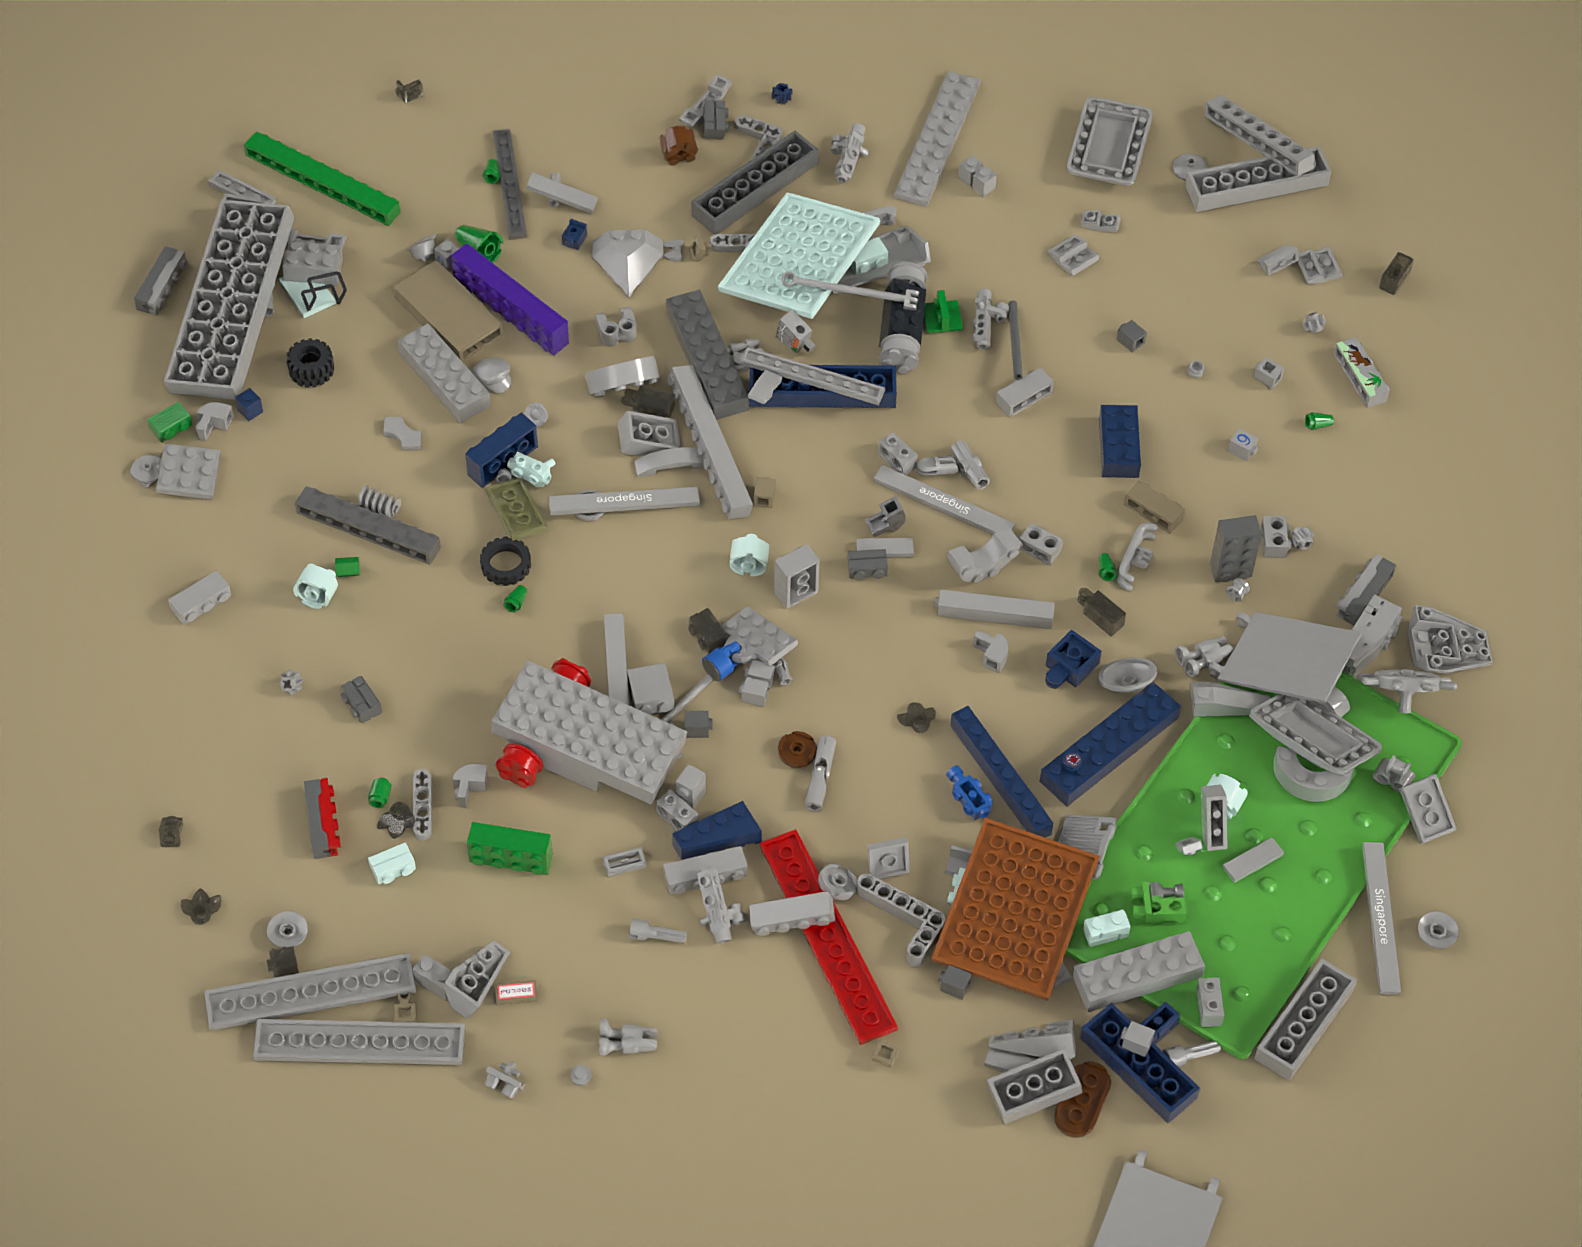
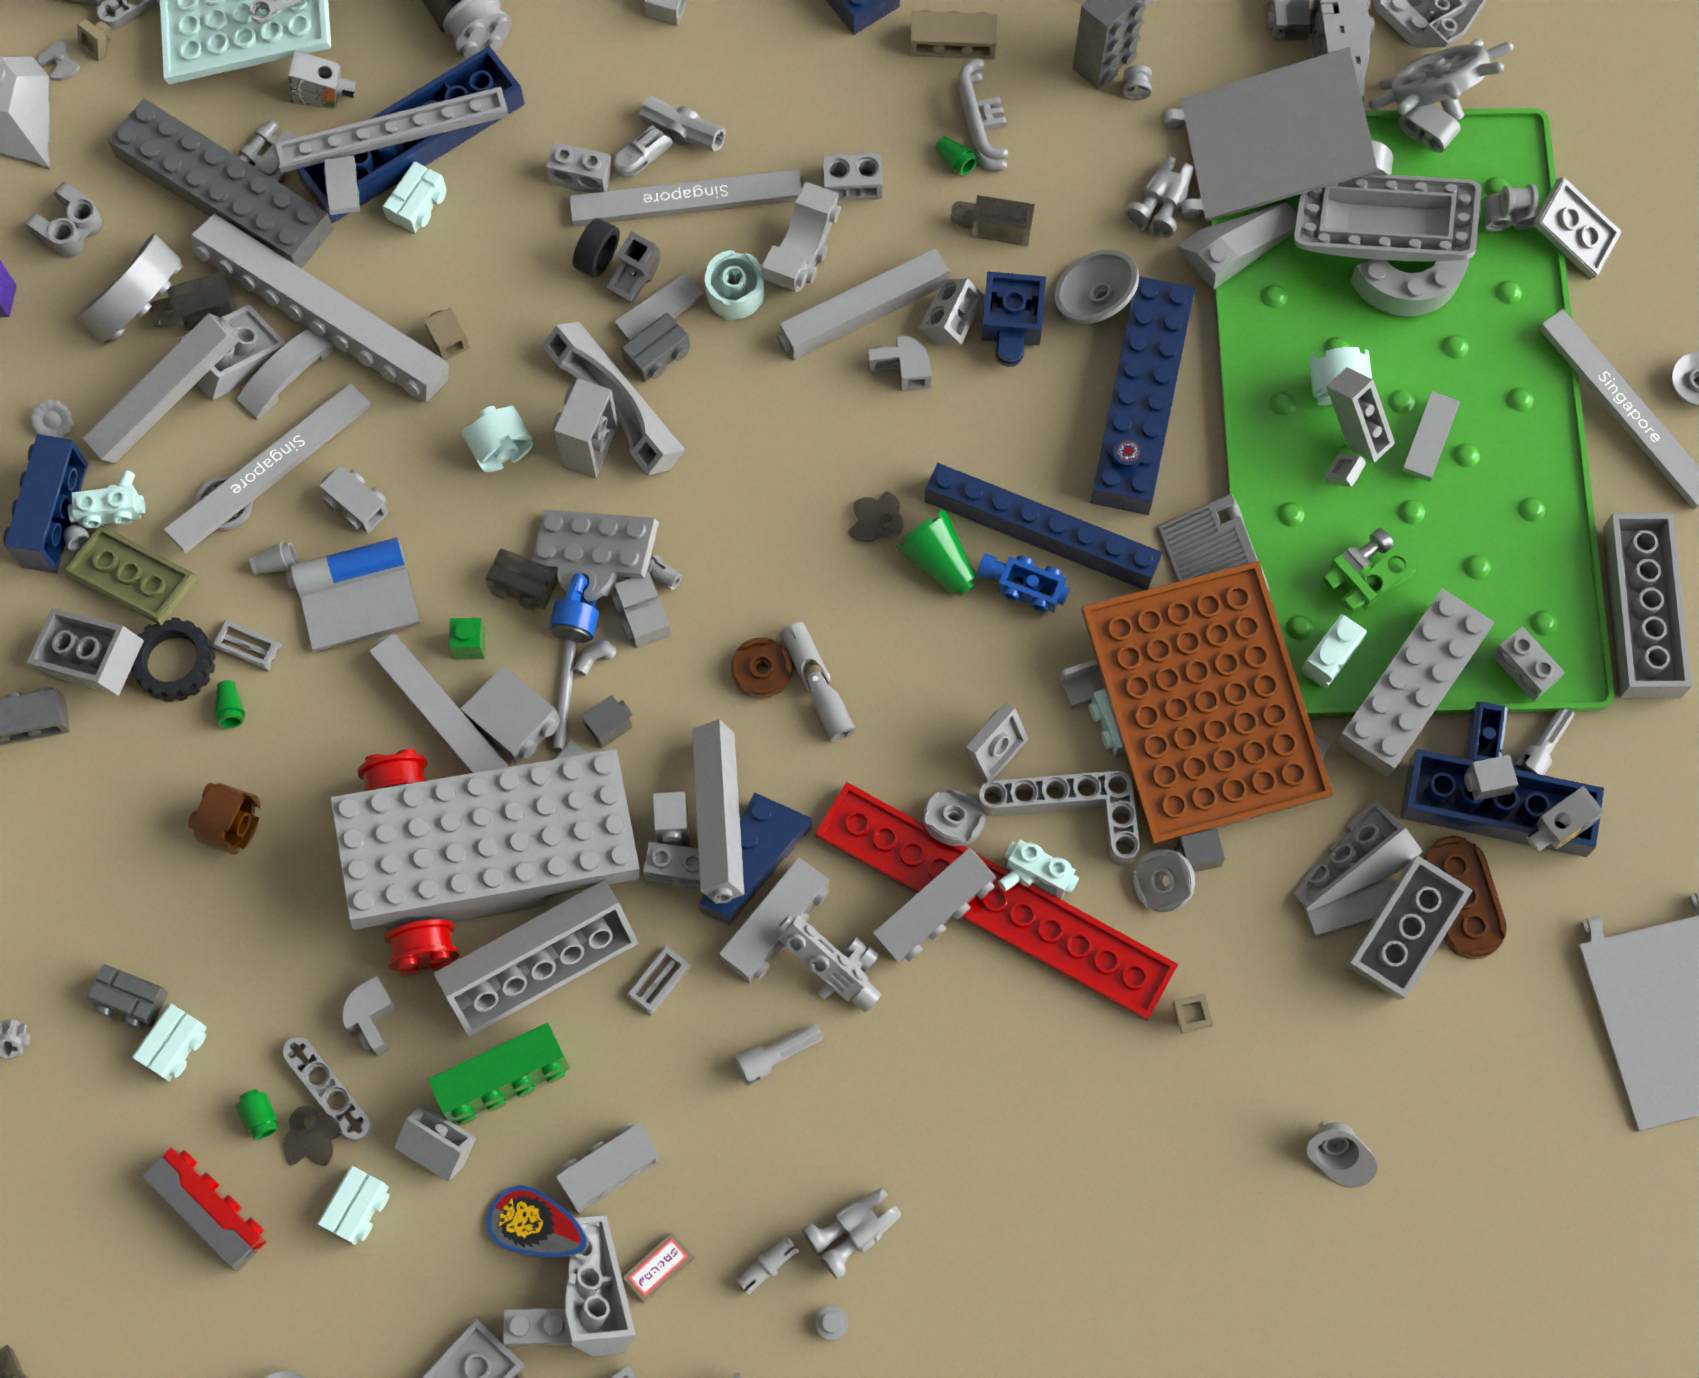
camera: 35 degrees left, 15 degrees up
(364, 733) = (170, 1043): none -> light aqua brick
(453, 860) = (435, 1143): none -> light grey brick
(466, 528) = (85, 651): none -> light grey brick
(471, 929) = (534, 1225): none -> shield
(472, 647) = (225, 817): none -> reddish brown brick
(529, 929) = (608, 1166): none -> light grey brick
(554, 589) = (268, 654): none -> light grey tile
(570, 806) = (536, 958): none -> light grey brick
(570, 1026) = (767, 1265): none -> light grey pin
(593, 545) = (274, 559): none -> light grey cone
(599, 429) = (162, 388): none -> light grey brick
(620, 586) = (355, 594): none -> light grey door
(654, 543) = (347, 493): none -> light grey brick
(658, 641) = (467, 638): none -> green brick
(716, 688) = (592, 652): none -> light grey arm
(716, 796) = (717, 812): none -> light grey brick
(801, 418) = (415, 197): none -> light aqua brick
(824, 542) = (647, 436): none -> light grey arch
(859, 928) = (1032, 866): none -> light aqua brick
(872, 495) = (596, 247): none -> black tyre
(907, 1172) = (1342, 1155): none -> light grey piece
(923, 982) = (1149, 880): none -> light grey plate
(931, 558) = (734, 285): none -> light aqua brick
(934, 750) = (939, 554): none -> green cone
(1038, 640) = (952, 311): none -> light grey brick
(1160, 1083) = (1575, 813): none -> light grey torso
(1384, 706) = (1430, 127): none -> light grey beam

